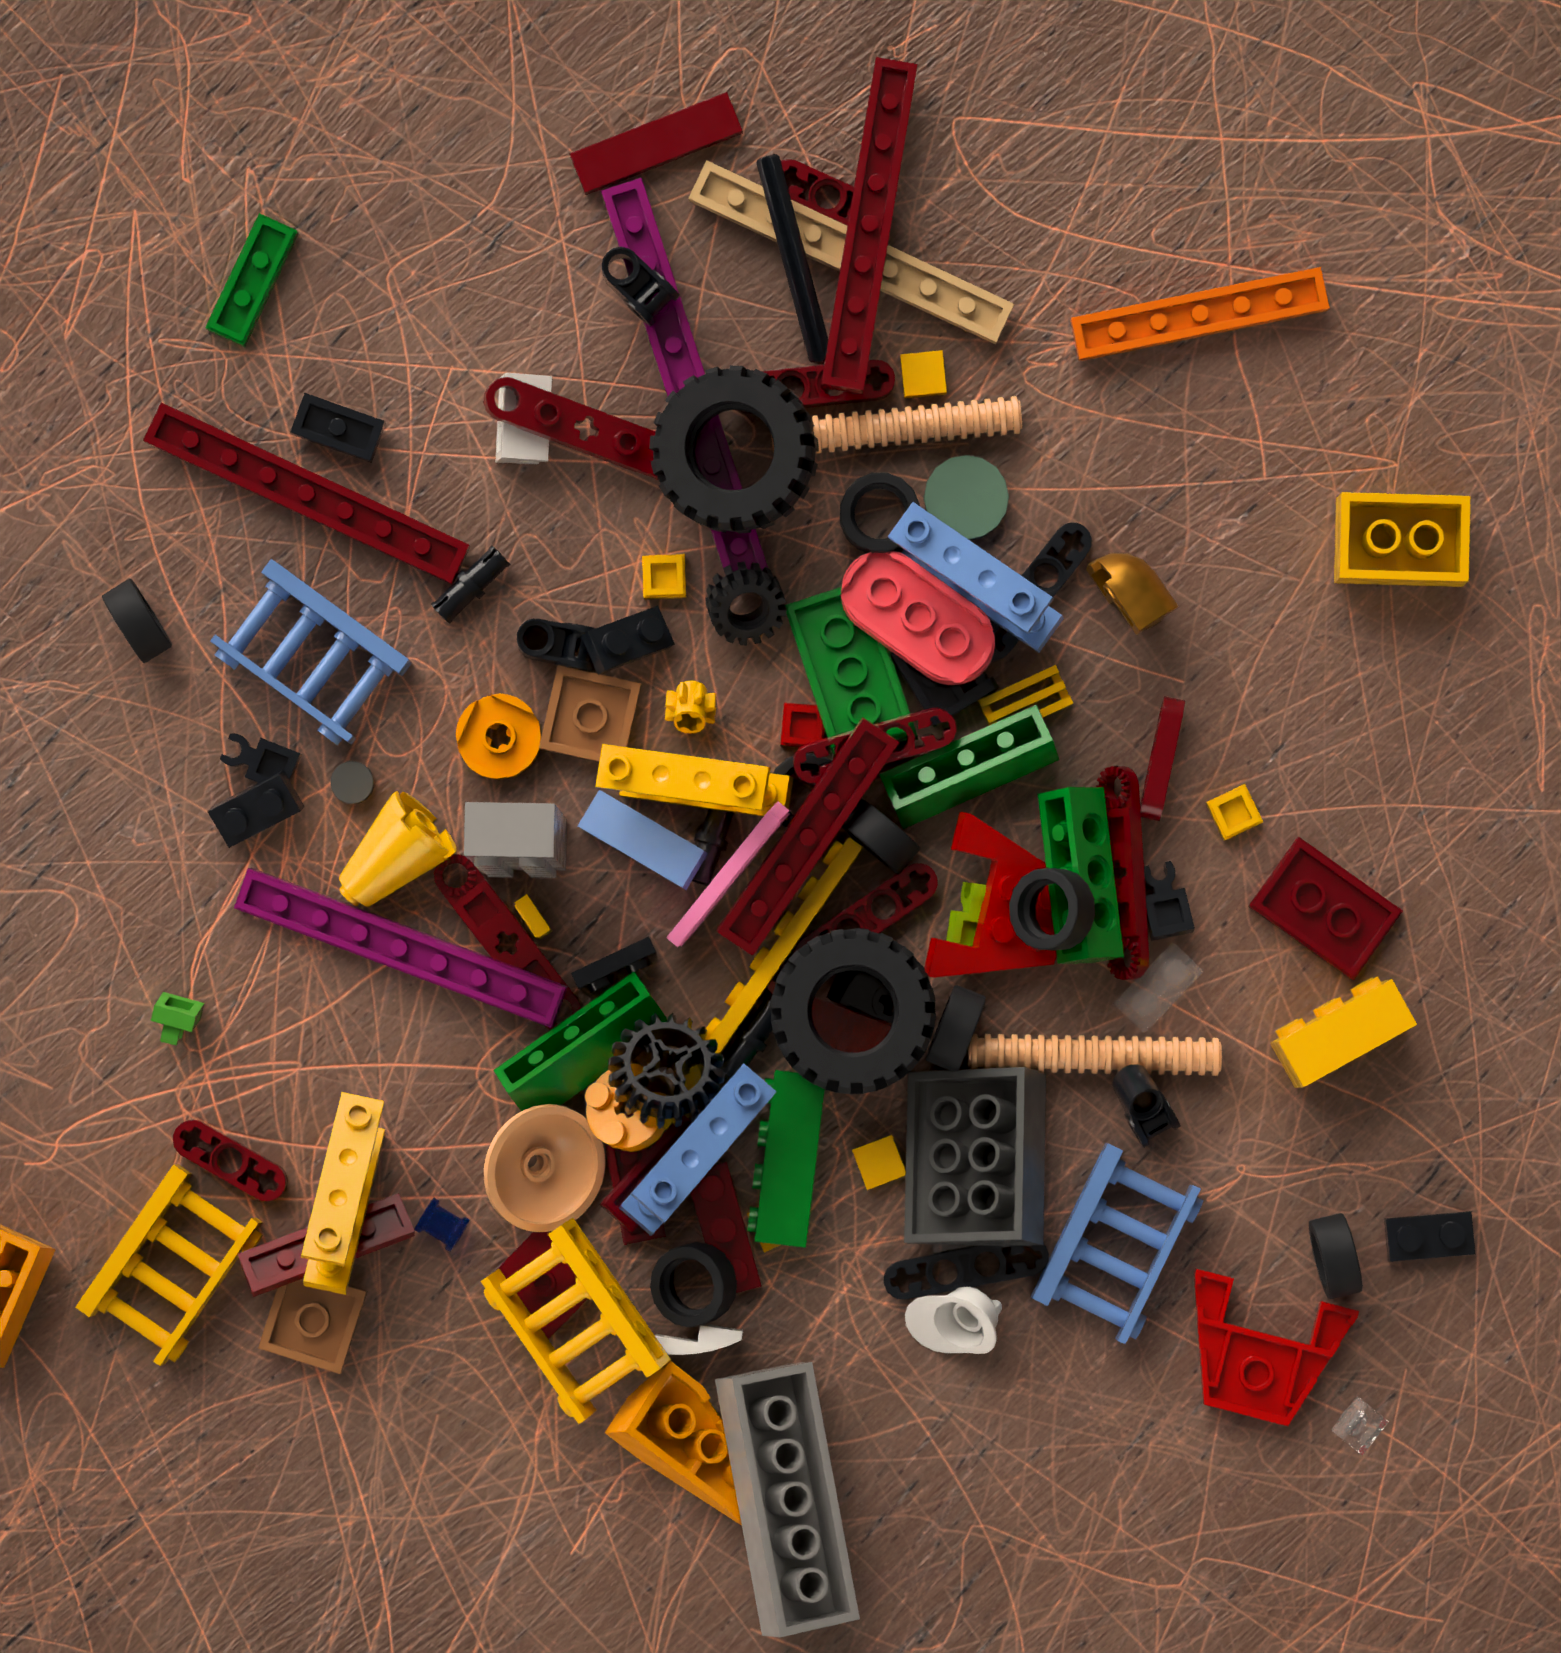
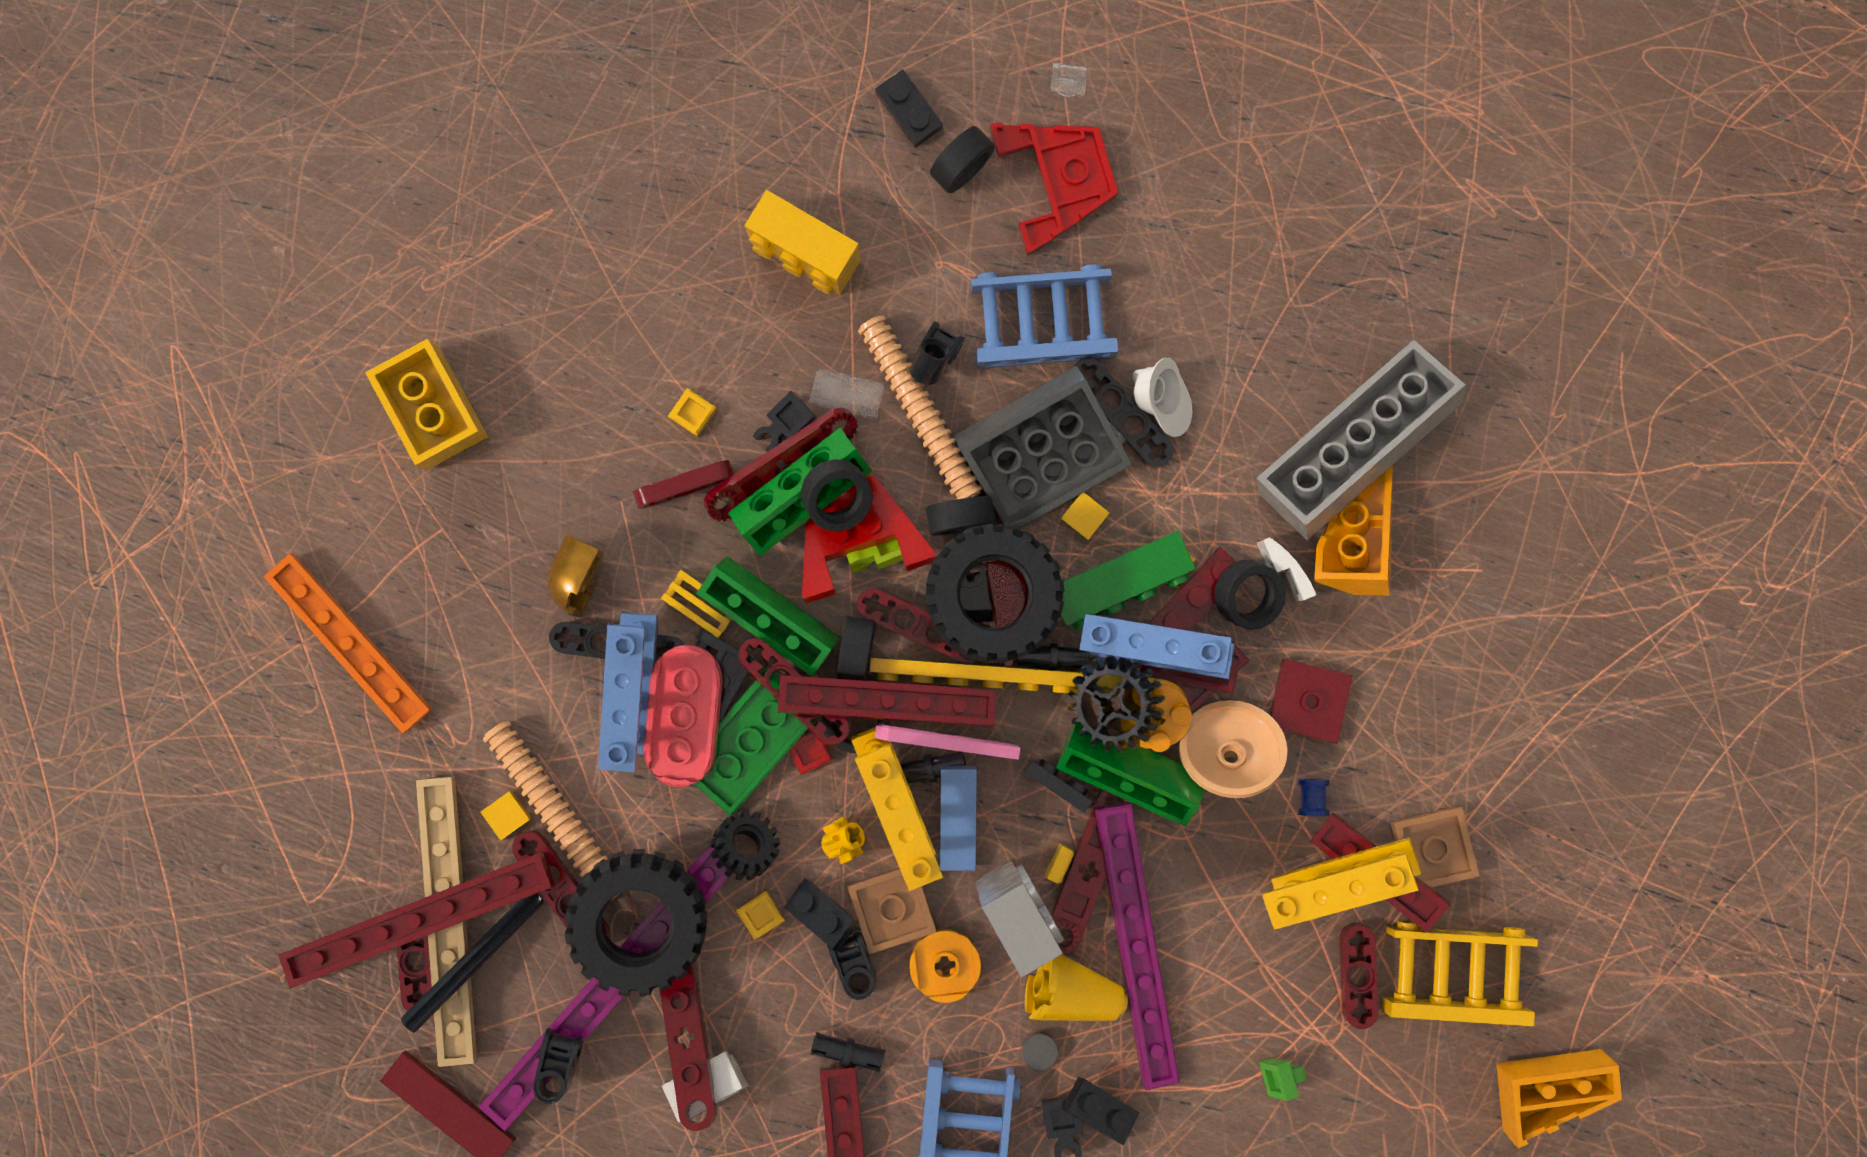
camera: 130 degrees left, 0 degrees up
(617, 1318) = (1299, 646): yellow fence -> none
(855, 492) = (620, 814): black tyre -> none
(967, 495) = (573, 732): sand green tile -> none
(1325, 908) = (723, 310): dark red tile -> none

